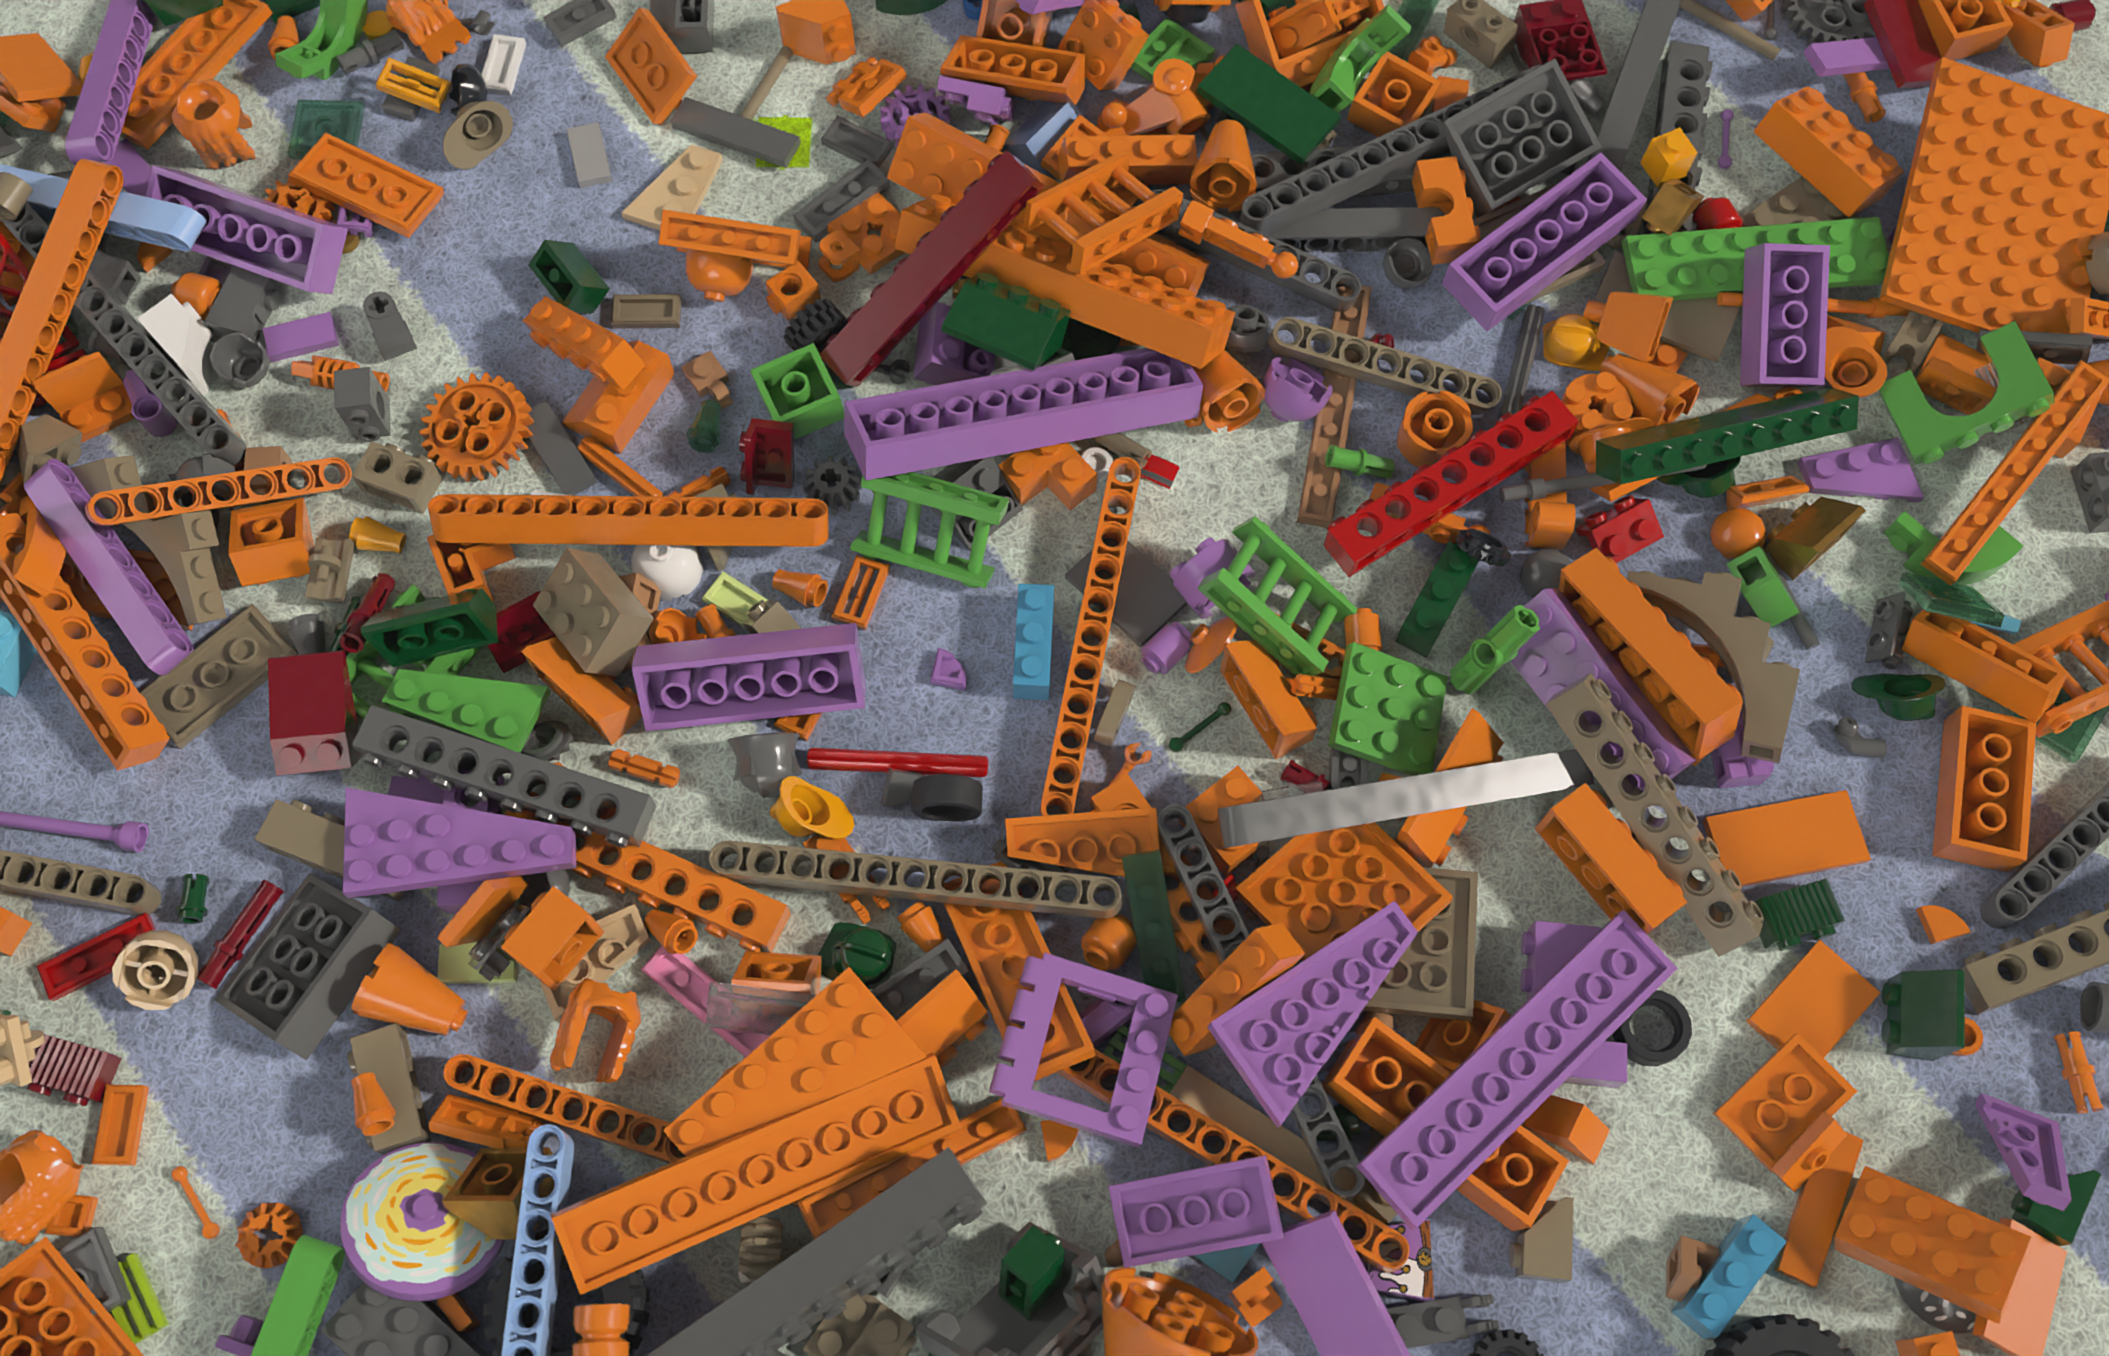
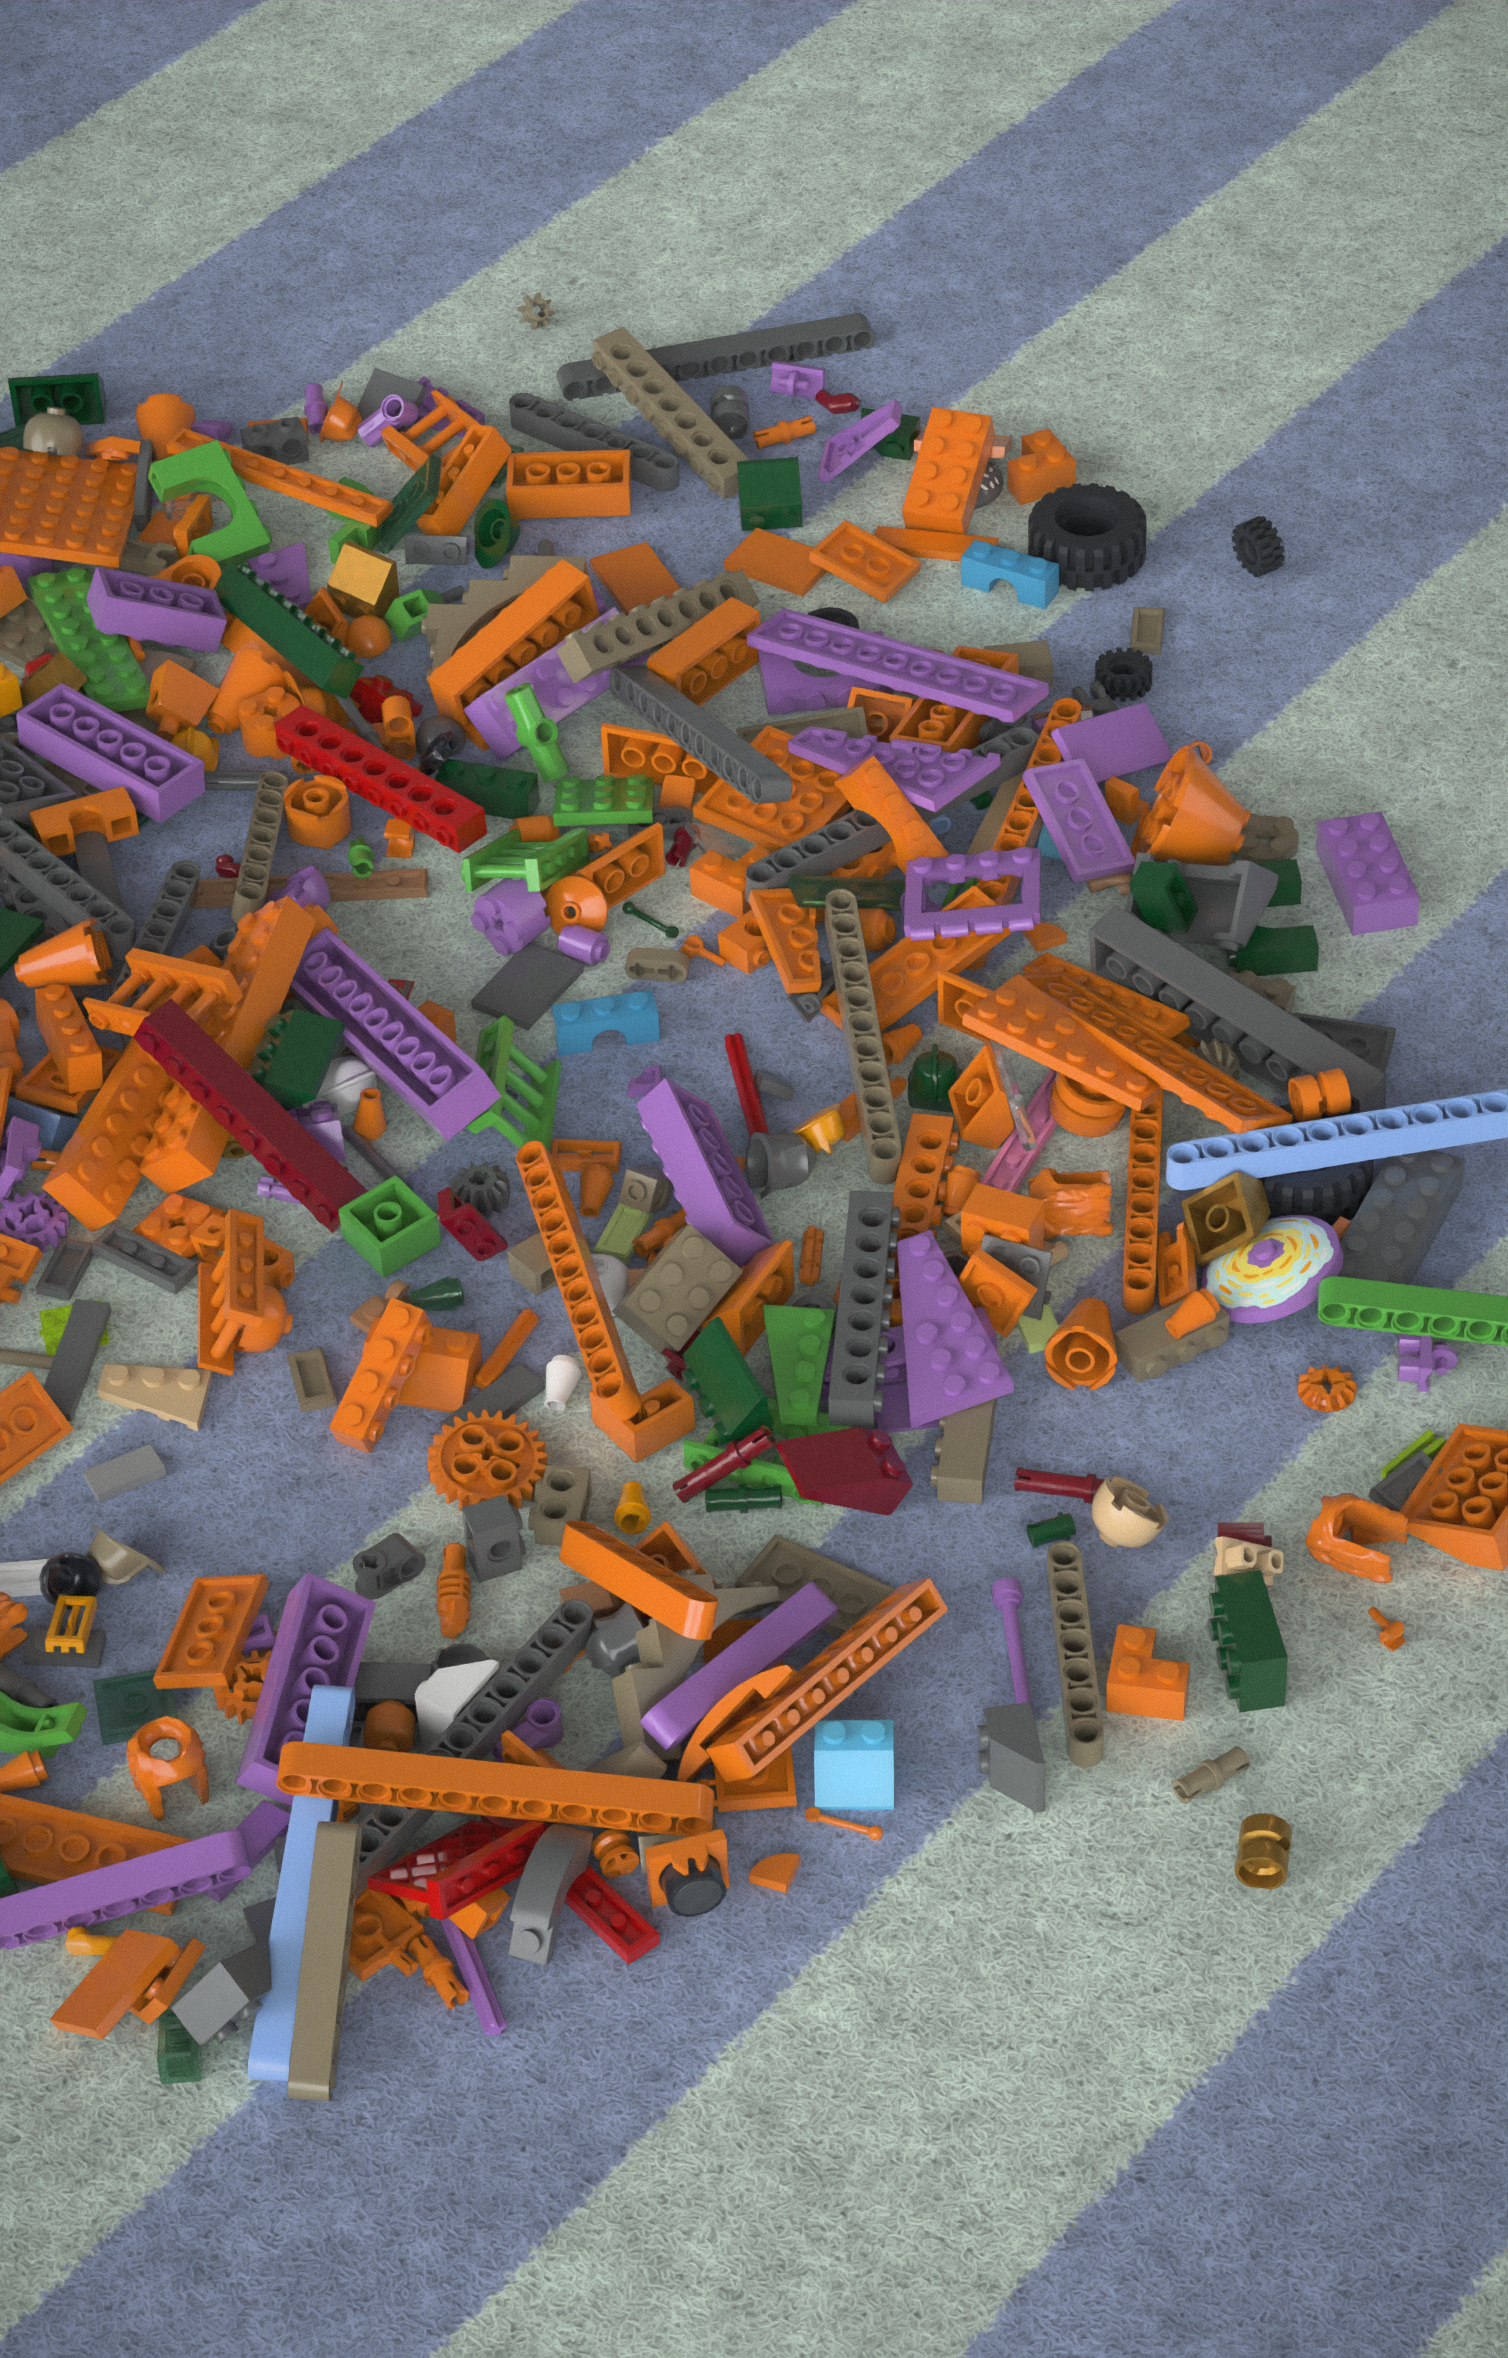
camera: 100 degrees left, 25 degrees down
(90, 959) = (1132, 1586): red tile -> none
(120, 1125) = (1280, 1516): orange tile -> none
(210, 1230) = (1302, 1464): orange hinge -> none
(300, 337) = (408, 1638): medium lavender tile -> none
(307, 633) = (759, 1525): dark grey cone -> none
(307, 966) = (1081, 1422): dark grey slope -> none
(329, 570) = (689, 1519): dark tan hips -> none
(568, 276) = (293, 1429): dark green brick -> none
(703, 483) = (509, 1289): orange axle -> none
(814, 325) = (315, 1226): black tyre -> none
(918, 979) = (946, 1029): dark grey plate -> none
(947, 798) = (777, 1039): black tyre -> none
(1095, 624) = (557, 983): orange beam -> none
(1200, 224) = (168, 917): orange plate -> none
(1407, 257) = (137, 859): dark grey hair -> none
(1686, 1266) = (1012, 593): medium nougat bracket -> none
(1798, 914) = (702, 562): dark green brick -> none
(1809, 1151) = (901, 540): orange plate -> none
(1941, 923) = (688, 506): orange tile -> none

